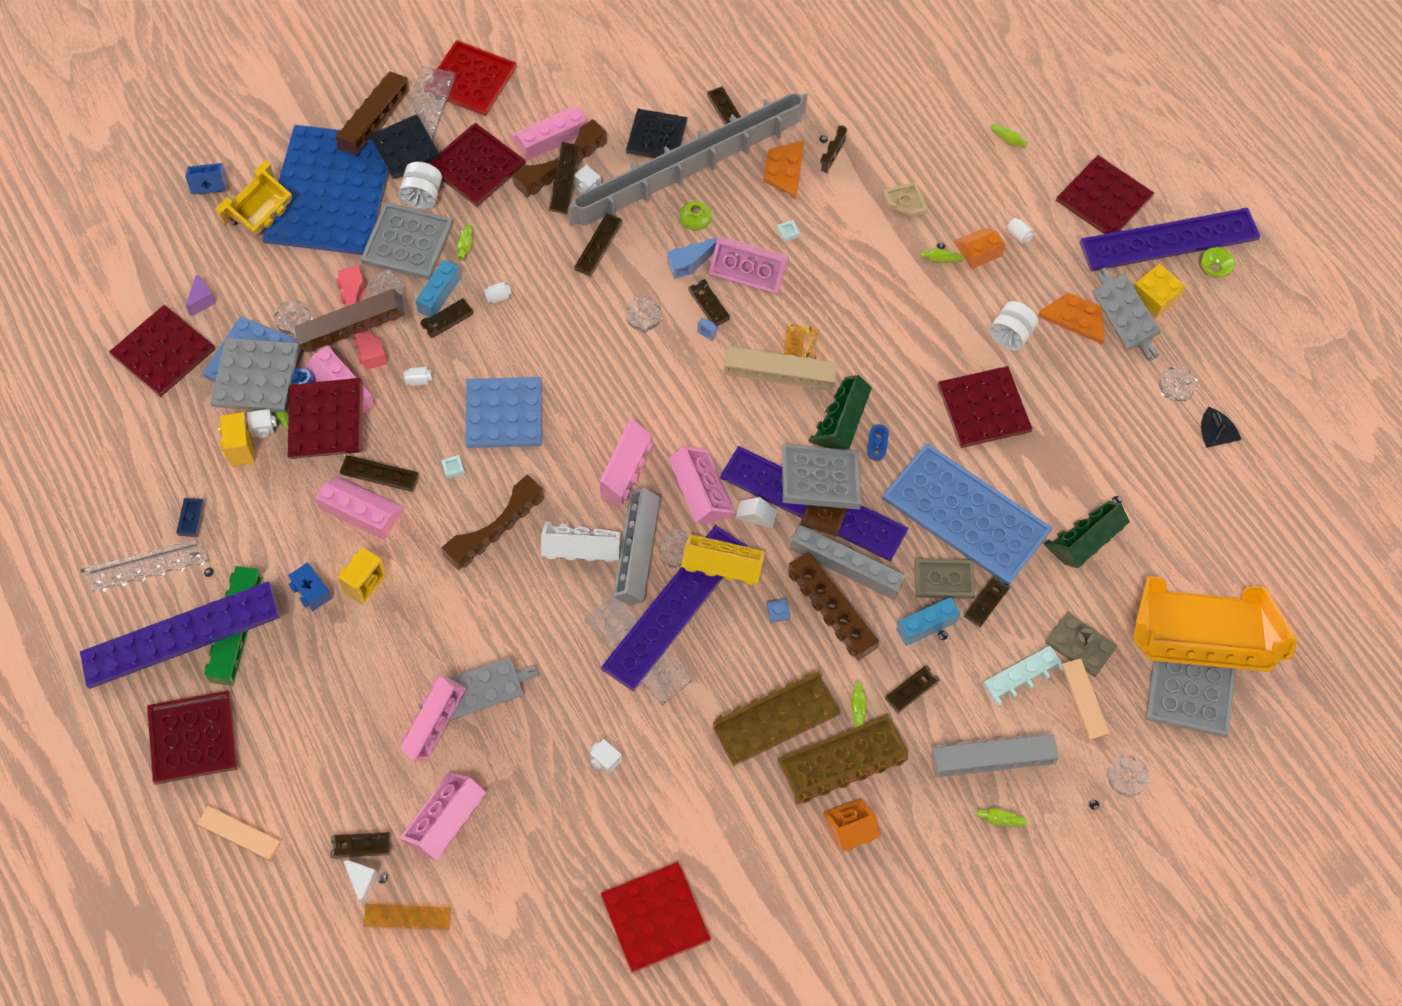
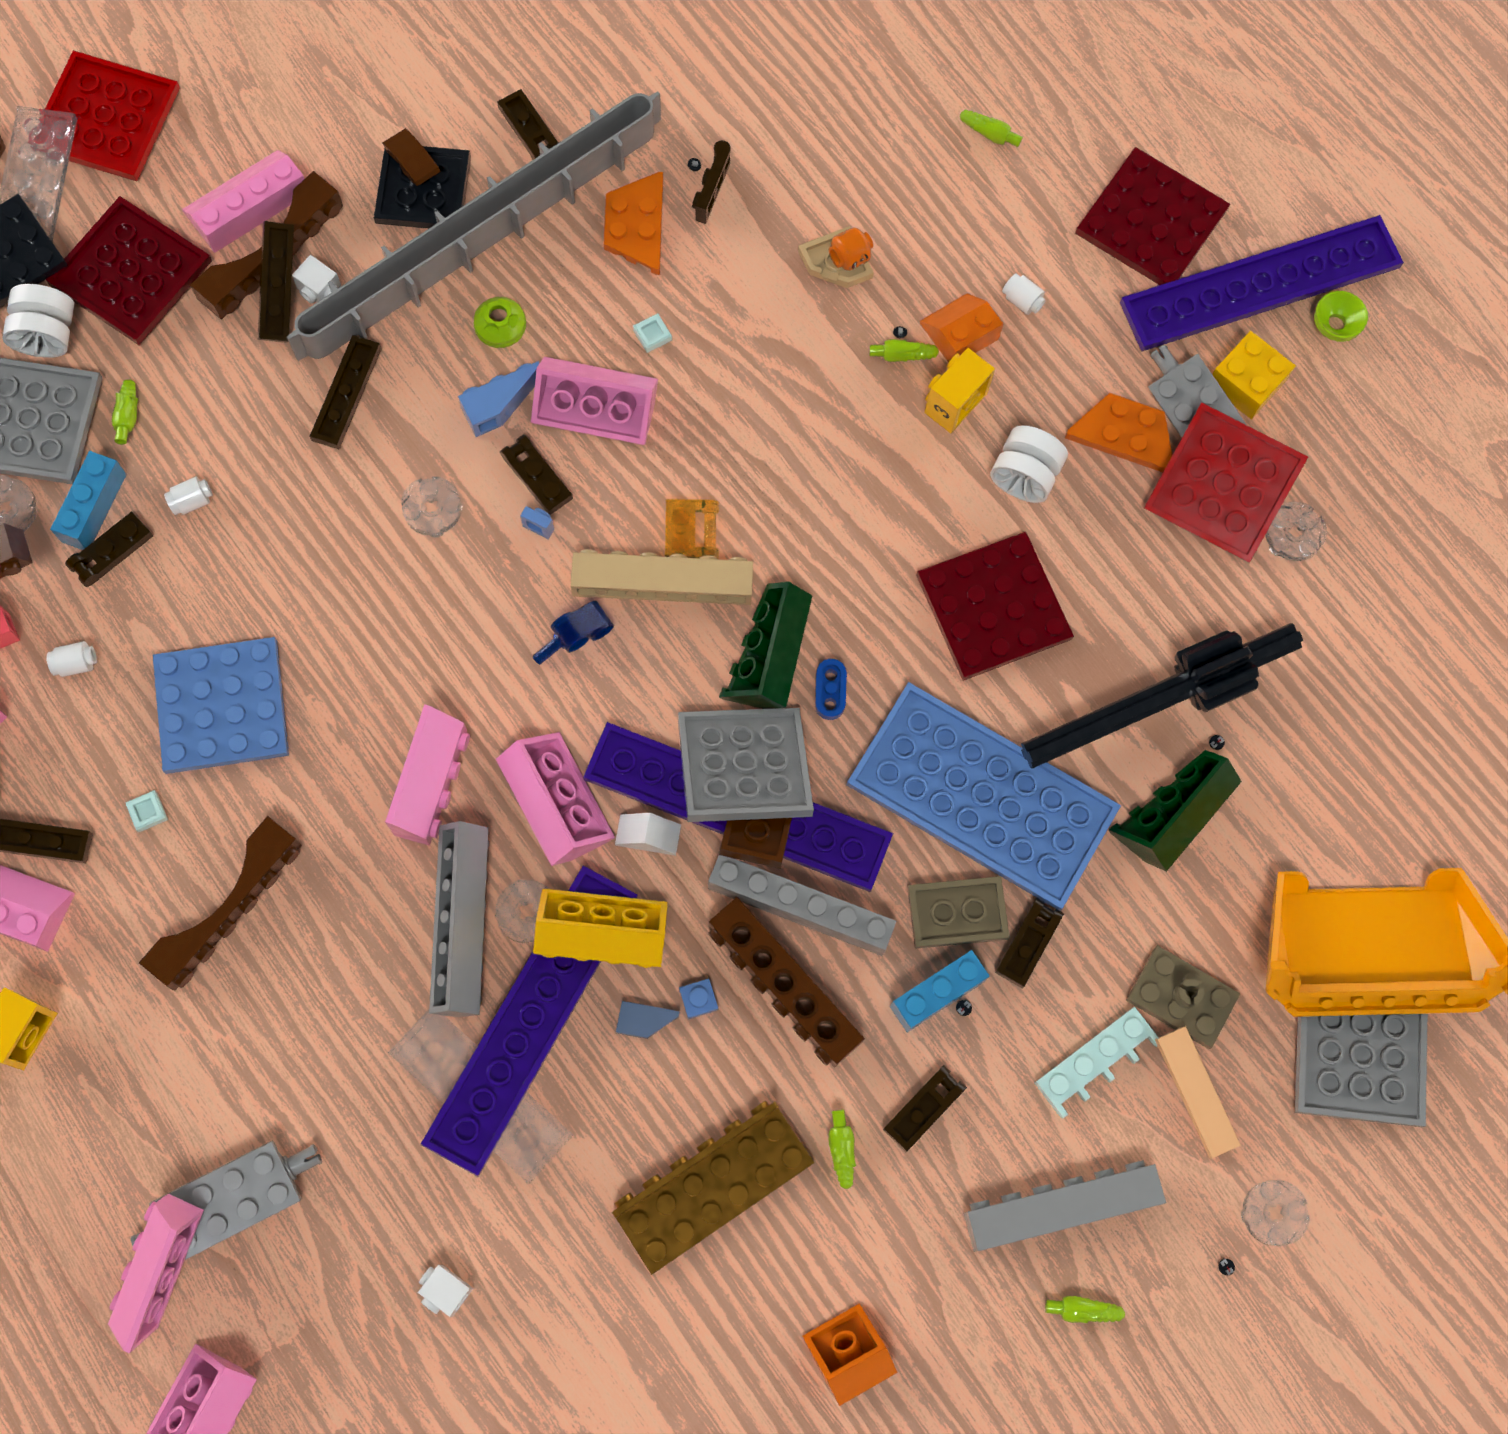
camera: 10 degrees left, 10 degrees up
(579, 543) = (364, 923): white wedge -> none
(653, 116) = (411, 156): none -> reddish brown slope
(724, 391) = (575, 630): none -> clear blue beam
(742, 618) = (643, 1020): none -> sand blue tile
(843, 759) = (825, 1244): pearl gold bracket -> none
(915, 193) = (851, 249): none -> orange head
(974, 279) = (958, 389): none -> yellow brick
(1113, 457) = (1205, 672): none -> black axle
(1135, 348) = (1225, 482): none -> red plate
(1217, 428) = (1363, 600): black shield -> none

